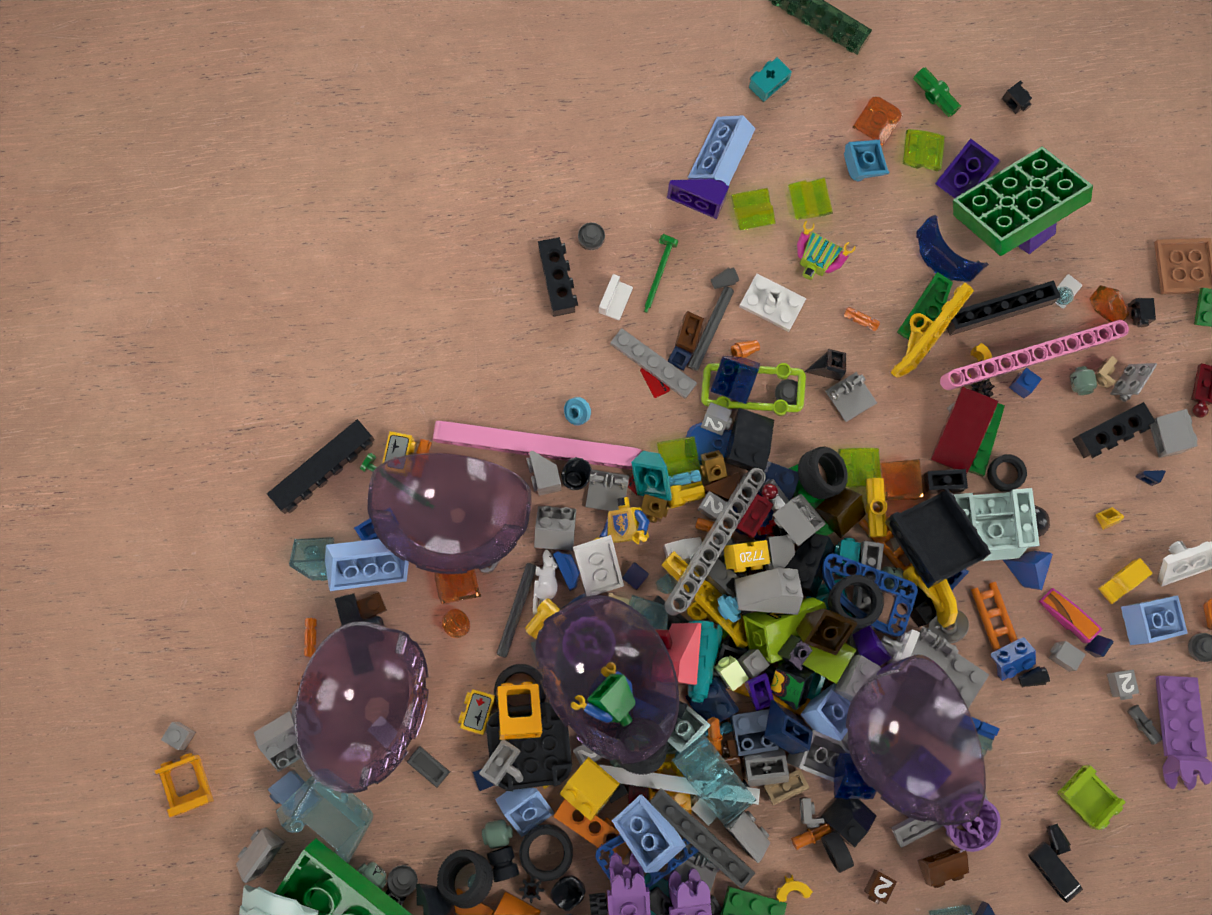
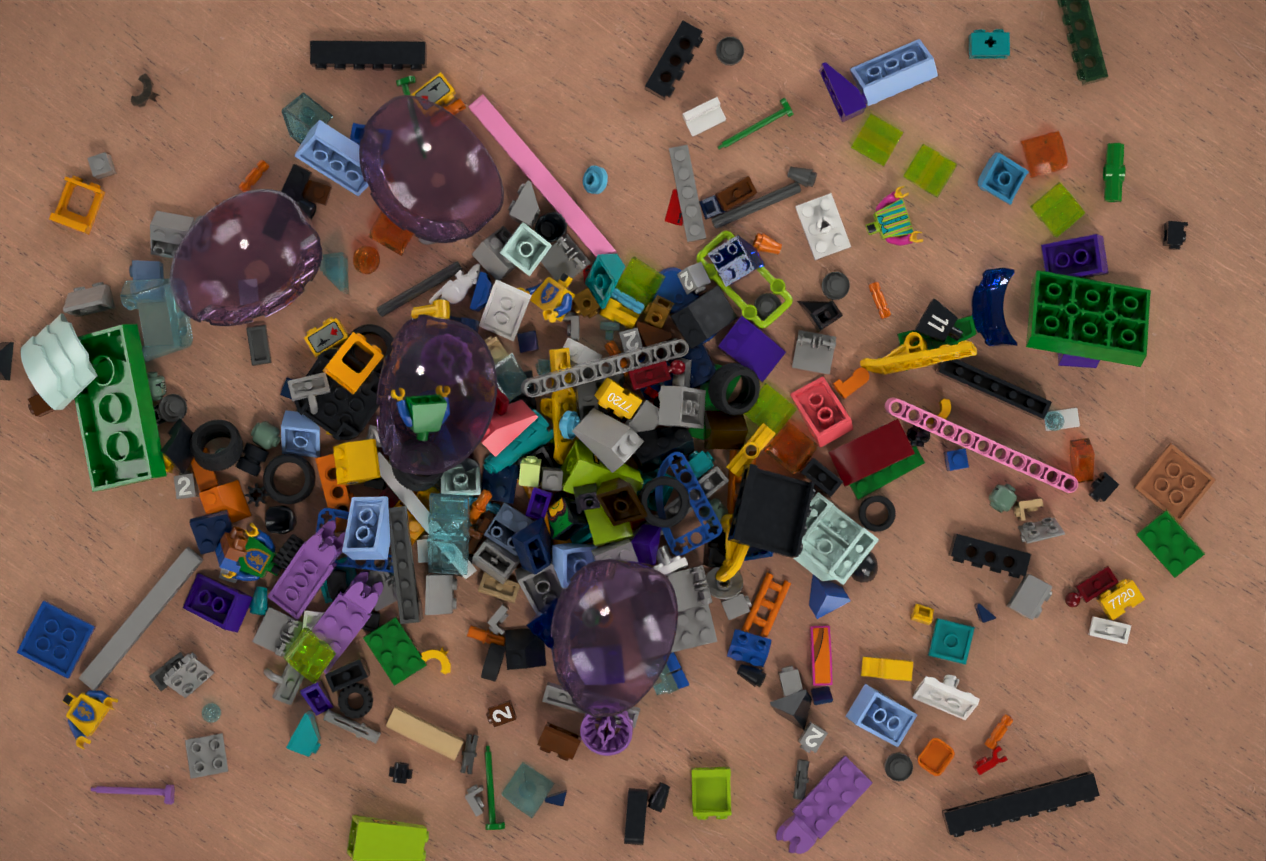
camera: 50 degrees right, 10 degrees up
(168, 647) = (147, 93): none -> clear smoke piece
(439, 653) = (336, 270): none -> clear light blue slope
(573, 505) = (525, 249): none -> light aqua slope
(661, 534) = (574, 328): none -> light grey bracket
(688, 511) = (610, 327): none -> clear light blue tile
(802, 432) = (751, 348): none -> dark purple slope
(821, 335) = (835, 286): none -> dark grey plate
(898, 434) = (822, 412): none -> coral slope
(900, 394) = (857, 379): none -> orange leg
(920, 295) = (938, 323): none -> black torso
(975, 636) = (736, 606): none -> light grey brick
(1088, 674) = (794, 707): none -> black slope
(1147, 518) = (951, 641): none -> teal tile

